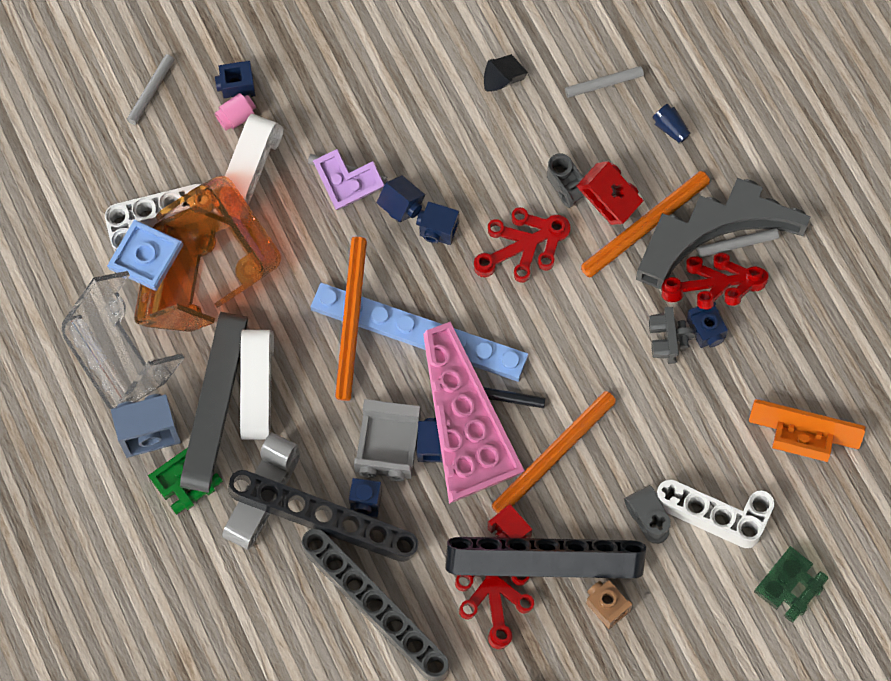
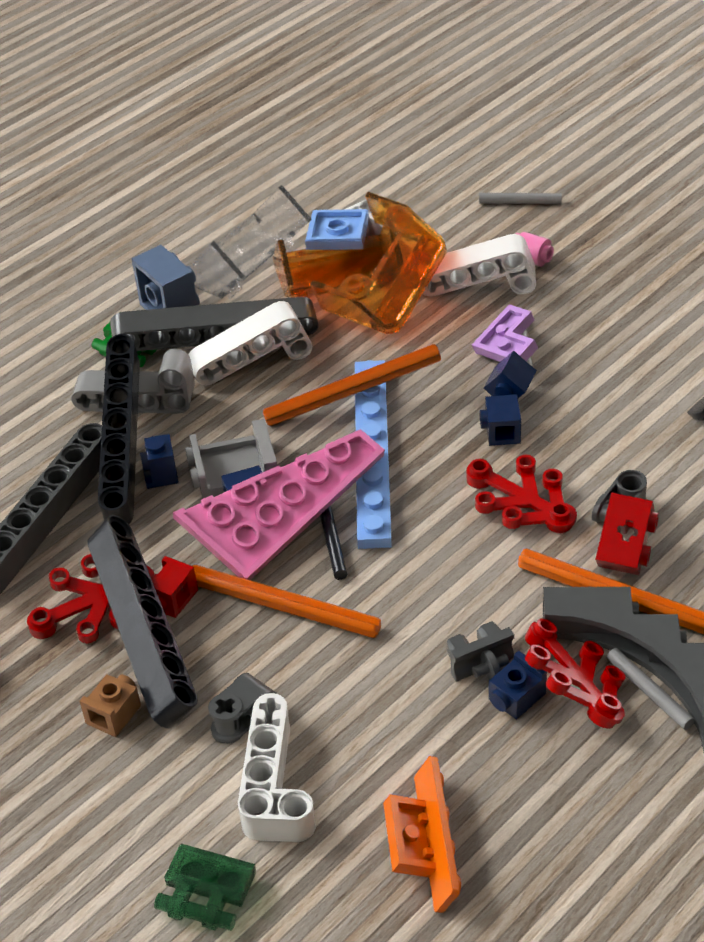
camera: 70 degrees right, 25 degrees down
(235, 79) = (566, 238): dark blue brick -> none

